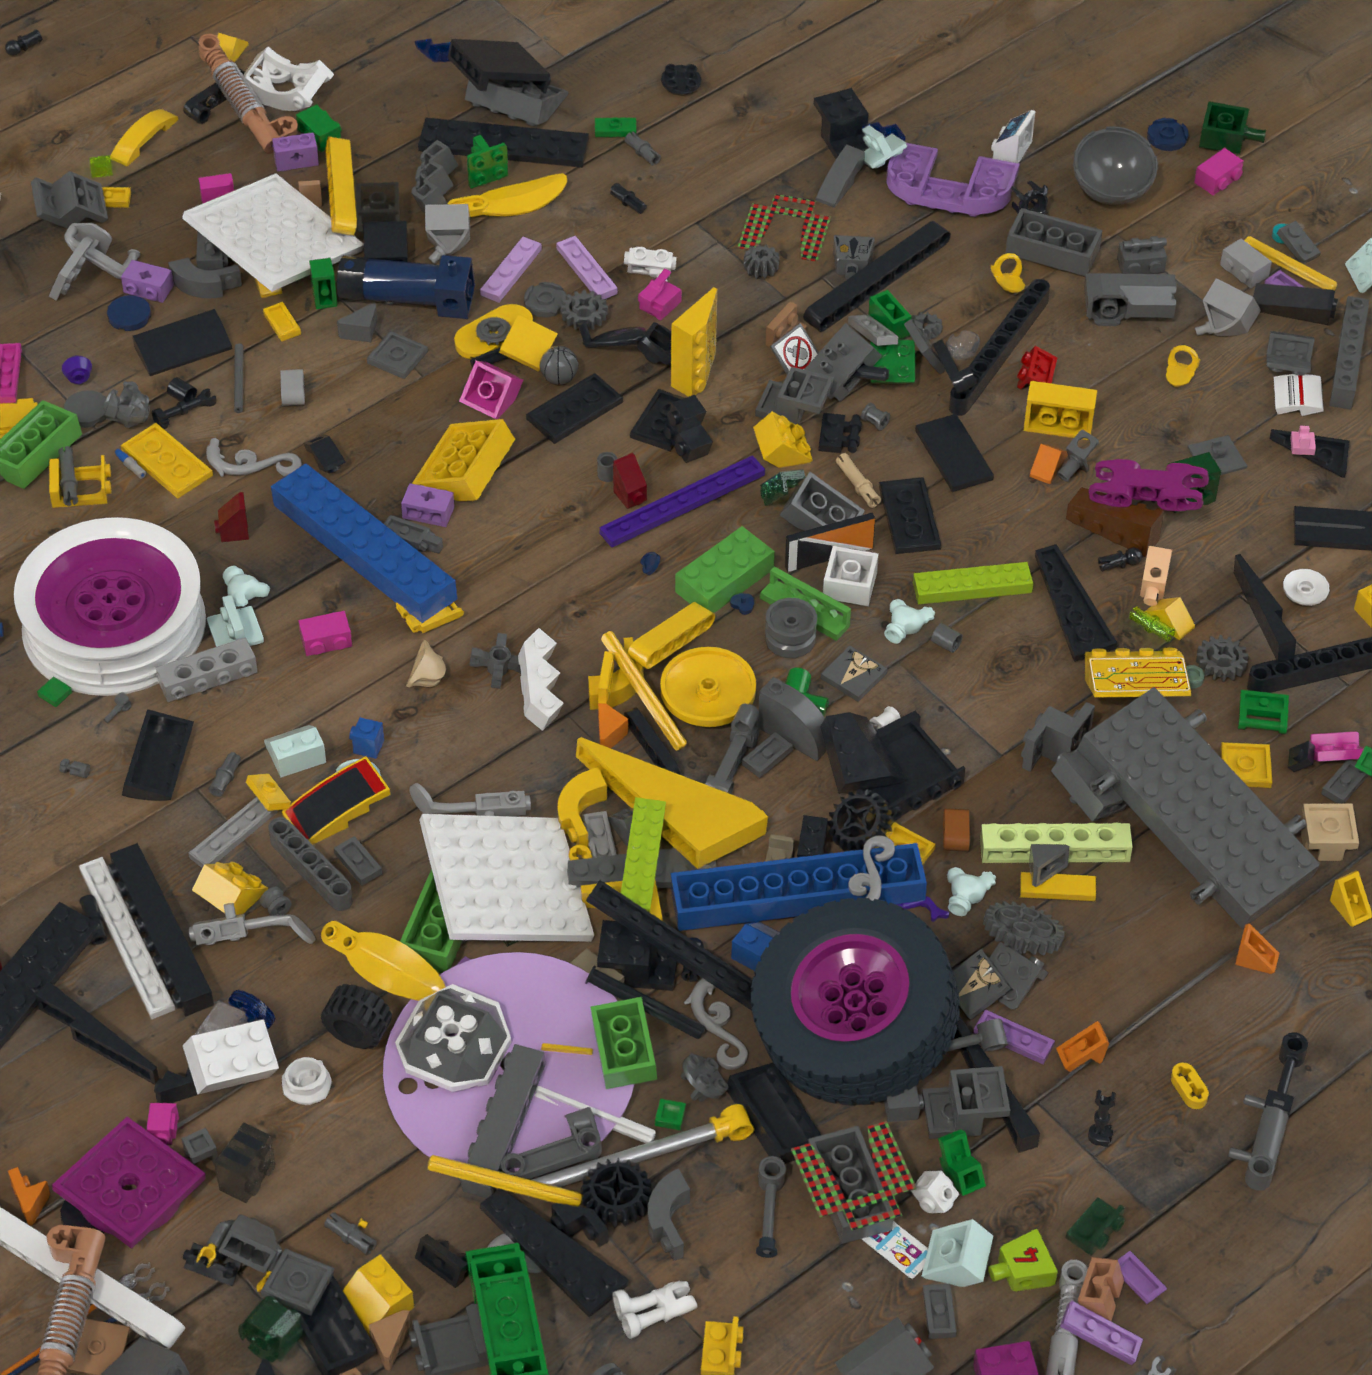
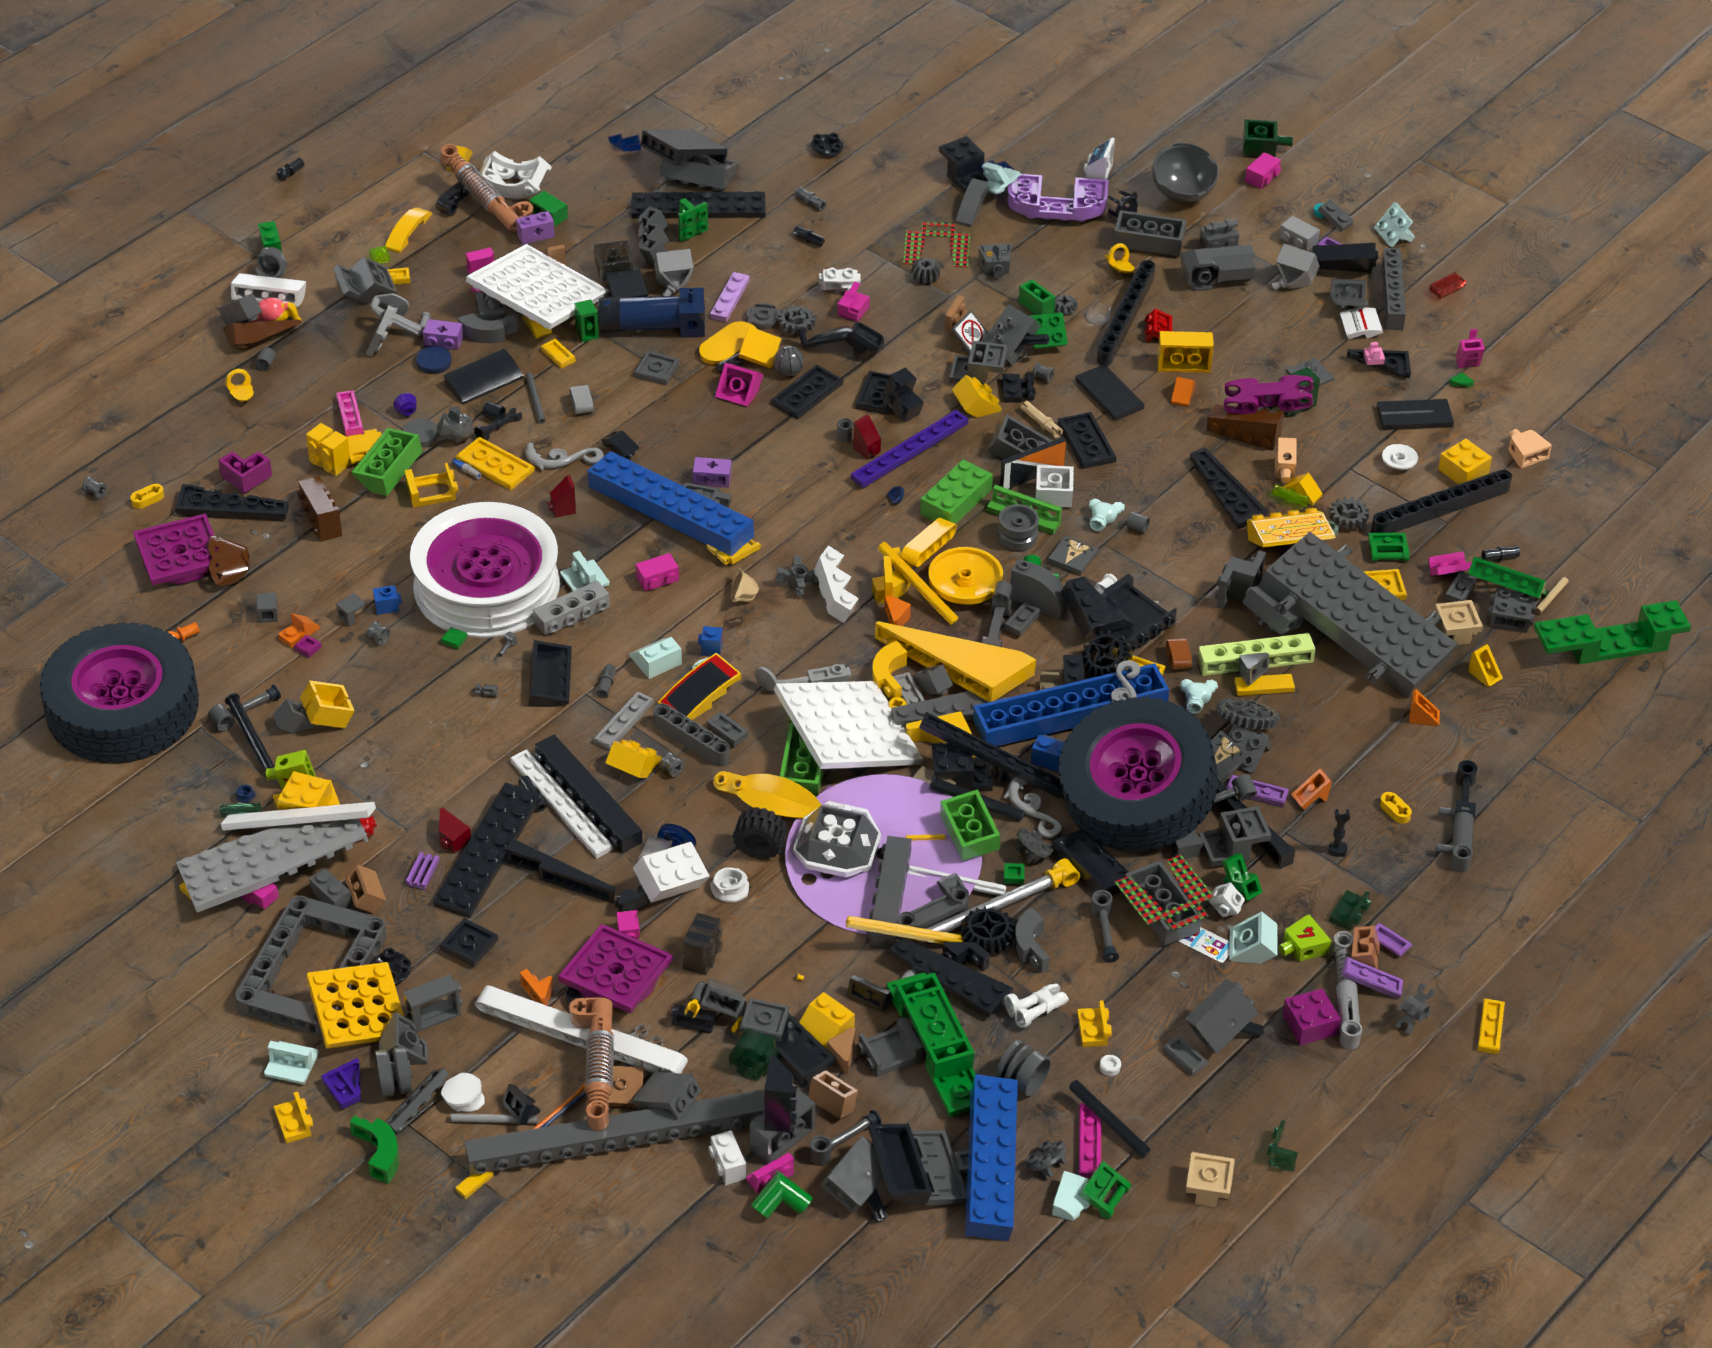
camera: 10 degrees left, 5 degrees down
(68, 482) = (423, 485): dark grey pin -> none
(199, 1146) = (664, 937): dark grey panel -> none
(236, 926) = (646, 784): light grey piece -> none
(243, 586) = (584, 544): light aqua animal -> none
(268, 792) = (644, 688): yellow plate -> none
(341, 186) = (580, 248): yellow beam -> none
(350, 1233) = (793, 984): dark grey pin -> none
(359, 325) = (621, 349): dark grey slope -> none
(466, 458) = (734, 434): yellow slope -> none
(493, 324) = (728, 337): dark grey gear -> none
(515, 198) = (723, 243): yellow plant -> none
(586, 267) = (789, 289): lavender plate -> none
(614, 127) = (783, 185): green plate -> none
(643, 851) = (949, 689): lime piece -> none
(650, 741) = (930, 619): black beam -> none
(694, 345) = (893, 334): yellow slope -> none
(742, 602) = (974, 515): dark blue piece -> none
(778, 485) = (984, 427): clear green bracket -> none
(872, 330) = (1030, 309): light grey tile -> none
(876, 276) = (1018, 272): black beam -> none
(924, 346) = (1070, 317): dark grey tile -> none
(939, 1311) = (1249, 979): dark grey plate -> none
(961, 379) = (1104, 337): black beam -> none
(972, 583) = (1147, 482): lime piece -> none
(1077, 456) = (1206, 383): dark grey bracket -> none
(1132, 556) = (1263, 449): black pin -> none
(1167, 134) = (1217, 147): dark blue tile -> none
(1178, 373) = (1268, 318): yellow piece -> none
(1266, 611) = (1374, 474): black slope -> none
(1292, 265) = (1335, 232): yellow axle -> none
(1301, 756) = (1424, 574): black plate -> none

